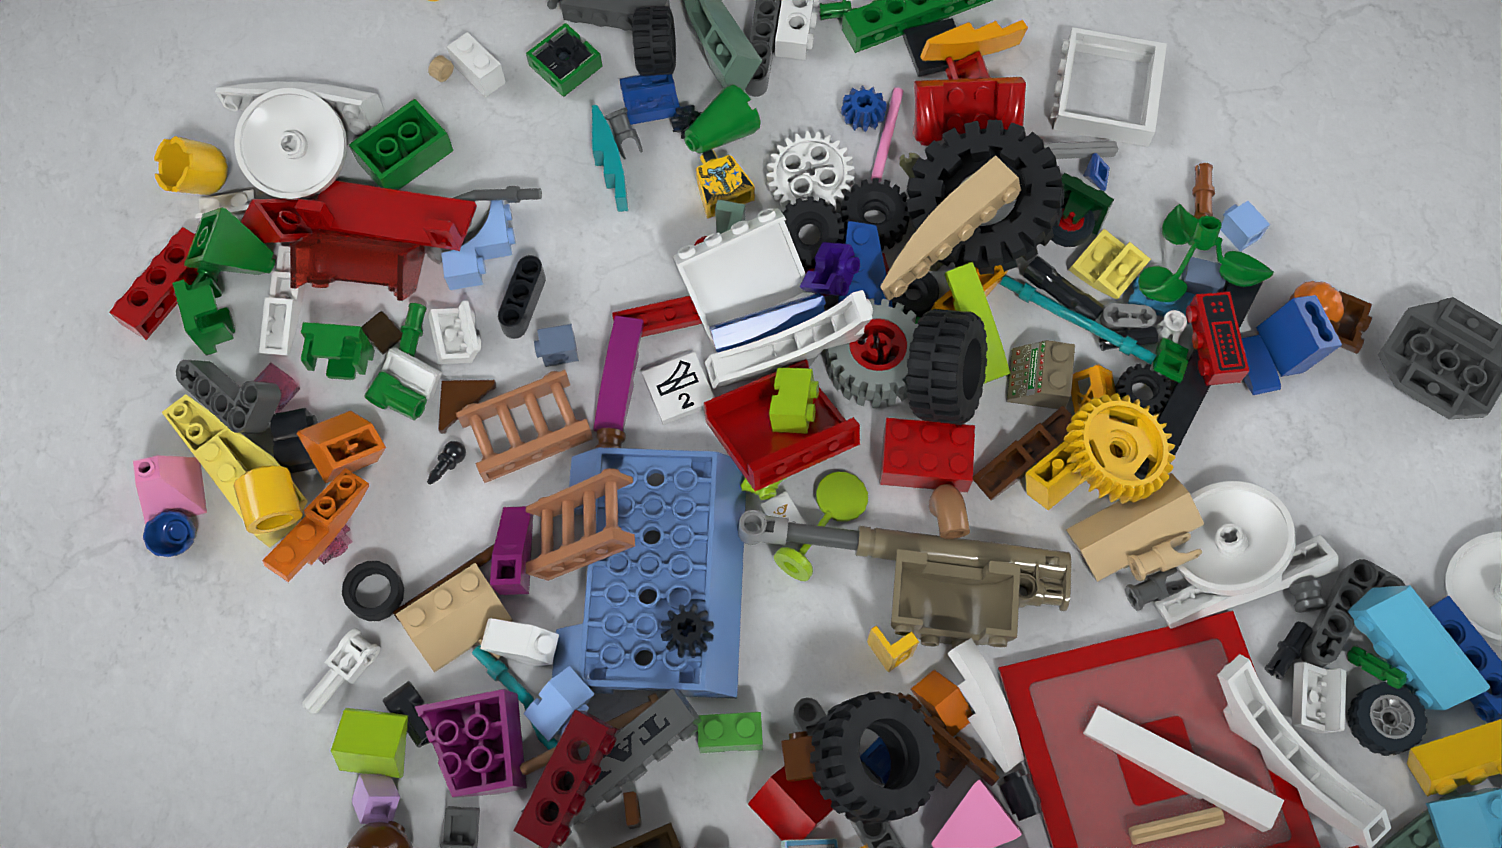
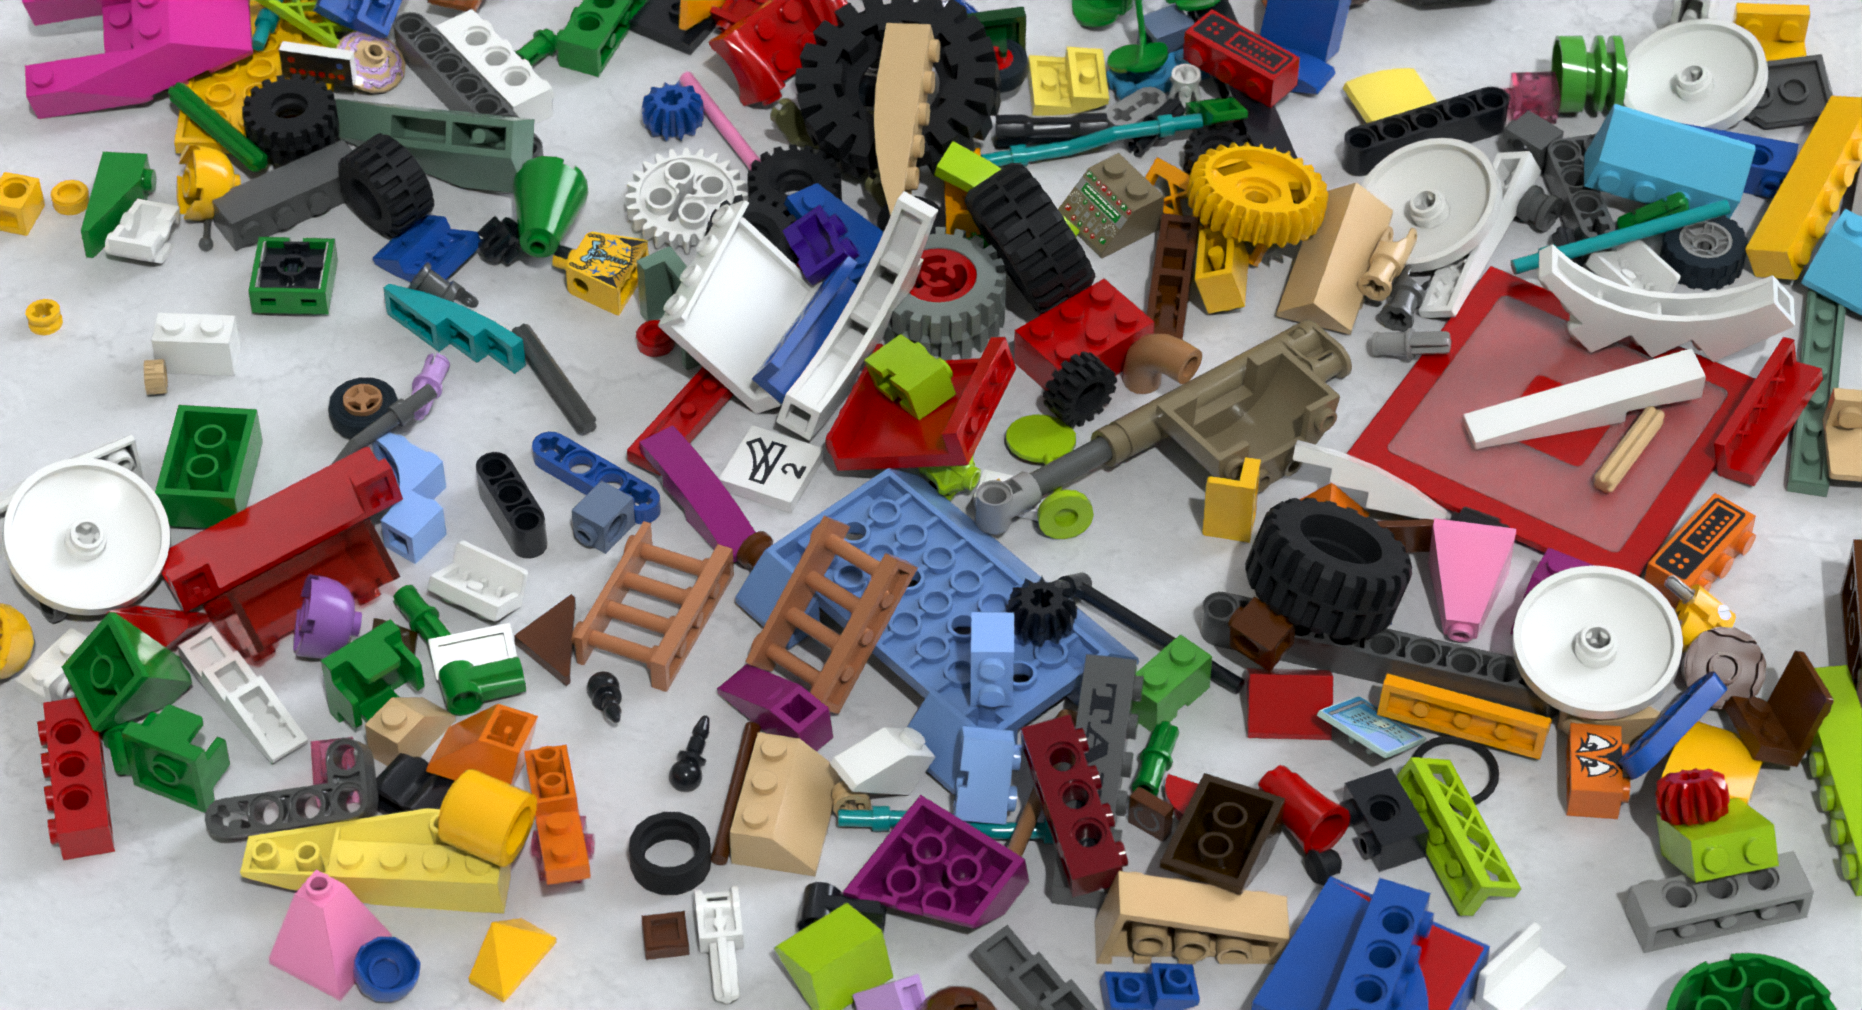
camera: 45 degrees left, 20 degrees down
(240, 579) = (509, 956): none -> yellow slope
(323, 638) = (665, 935): none -> reddish brown tile
(333, 392) = (406, 727): none -> tan slope
(355, 290) = (324, 618): none -> medium lavender cylinder
(438, 545) = (687, 773): none -> black bar
(516, 162) = (359, 404): none -> black wheel
(562, 183) = (433, 375): none -> lavender axle
(587, 314) = (601, 469): none -> blue beam
(614, 644) = (992, 659): none -> light blue brick
(628, 233) = (556, 381): none -> dark grey axle
(666, 812) = (1179, 793): none -> red tile
(677, 773) = (1156, 758): none -> green axle
(752, 619) = (1082, 588): none -> black bar
(886, 487) = (1079, 389): none -> black tyre
(1121, 625) = (1411, 343): none -> light grey axle
(1272, 642) = (1628, 234): none -> teal bar
(1296, 439) = (1387, 93): none -> light yellow slope
(1306, 476) = (1461, 117): none -> black beam
(1354, 542) = (1532, 135): none -> dark grey brick
(1389, 511) = (1535, 93): none -> clear pink brick
(1441, 529) = (1594, 73): none -> bright green wheel

